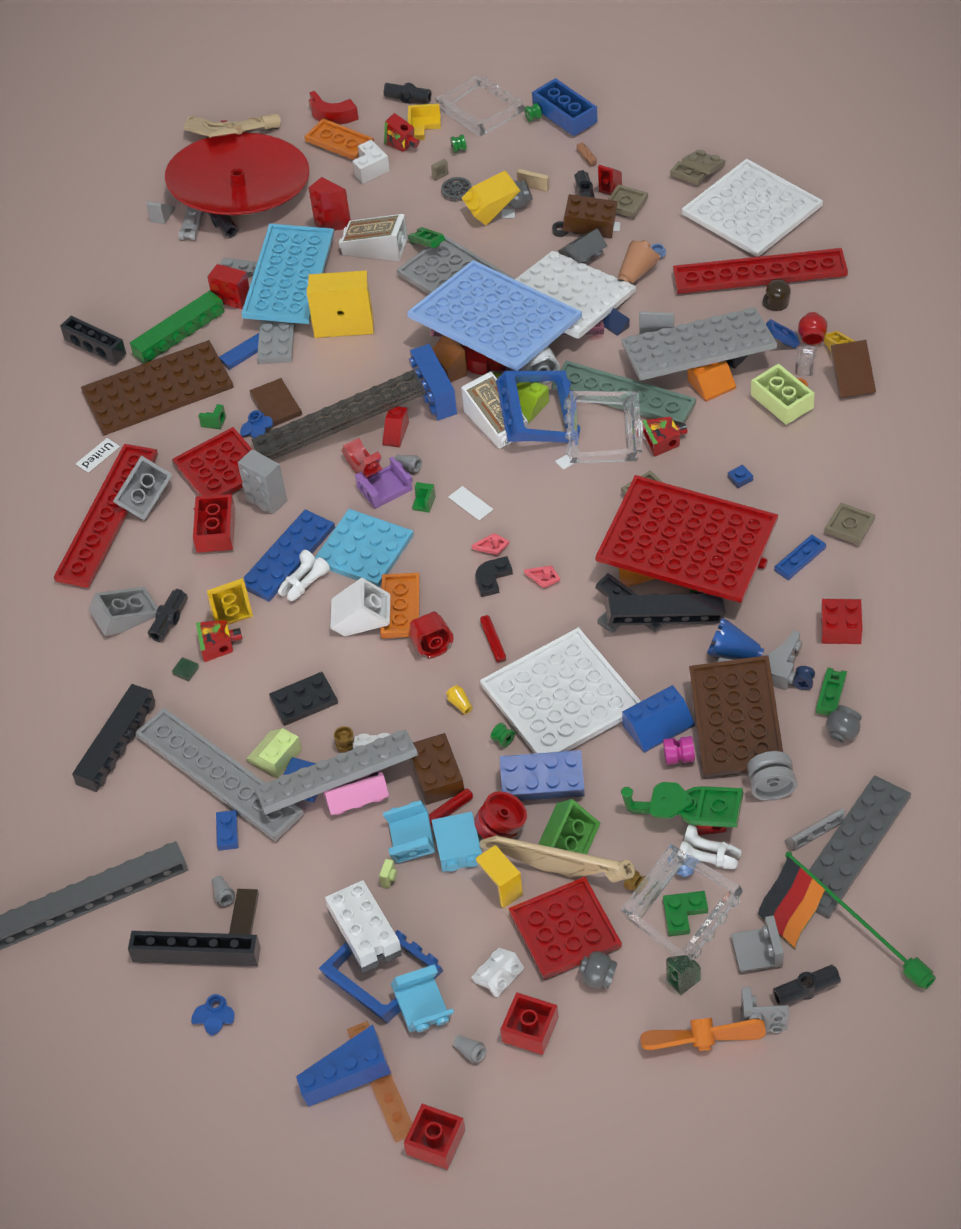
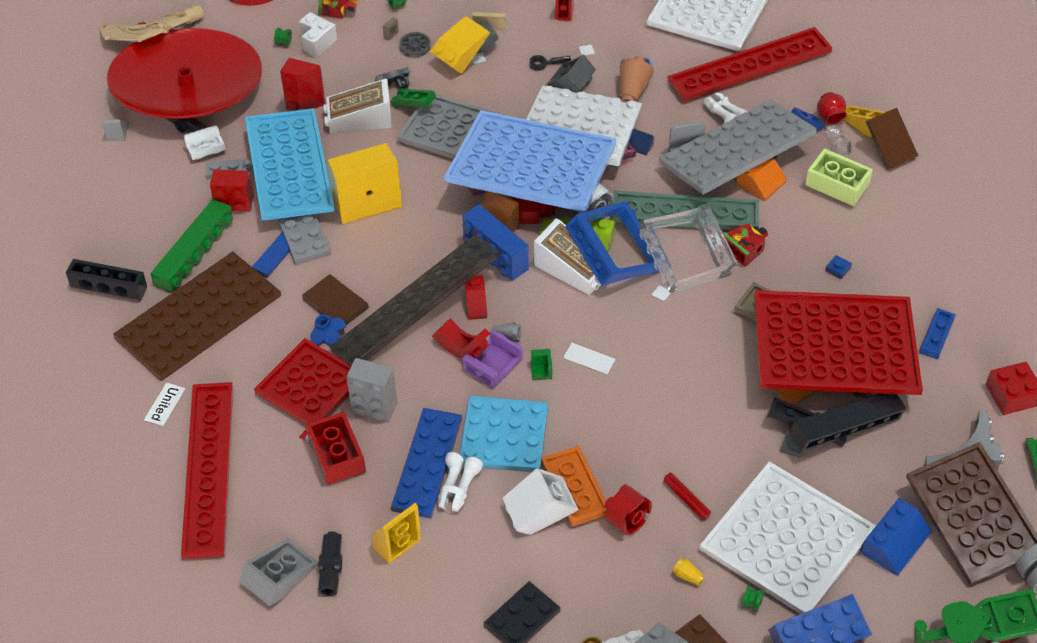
camera: 25 degrees left, 0 degrees up
(143, 488) = (239, 428): light grey slope -> none
(185, 669) = (377, 619): clear green tile -> none
(191, 224) = (154, 134): light grey plate -> none
(213, 420) = (278, 335): green panel -> none
(216, 638) = (397, 576): red torso -> none
(227, 239) = (204, 142): none -> white bracket
(336, 138) = (269, 17): orange plate -> none
(340, 158) = (282, 36): none -> green wheel
(426, 215) = (400, 76): none -> black hinge
(488, 573) = (647, 426): black plate -> none
(492, 544) = (634, 396): coral piece -> none
(543, 576) = (703, 416): coral piece -> none
(583, 184) = (545, 21): black piece -> none
(589, 213) = (564, 43): reddish brown brick -> none
(629, 200) = (588, 23): dark tan plate -> none
(679, 750) = (937, 564): dark pink wheel -> none
(708, 305) = (718, 105): none -> white piece
(733, 643) = (928, 438): blue cone -> none
(778, 294) = (783, 80): dark brown helmet -> none
(804, 677) = (1011, 454): dark blue wheel -> none
(849, 523) = (966, 289): dark tan plate -> none

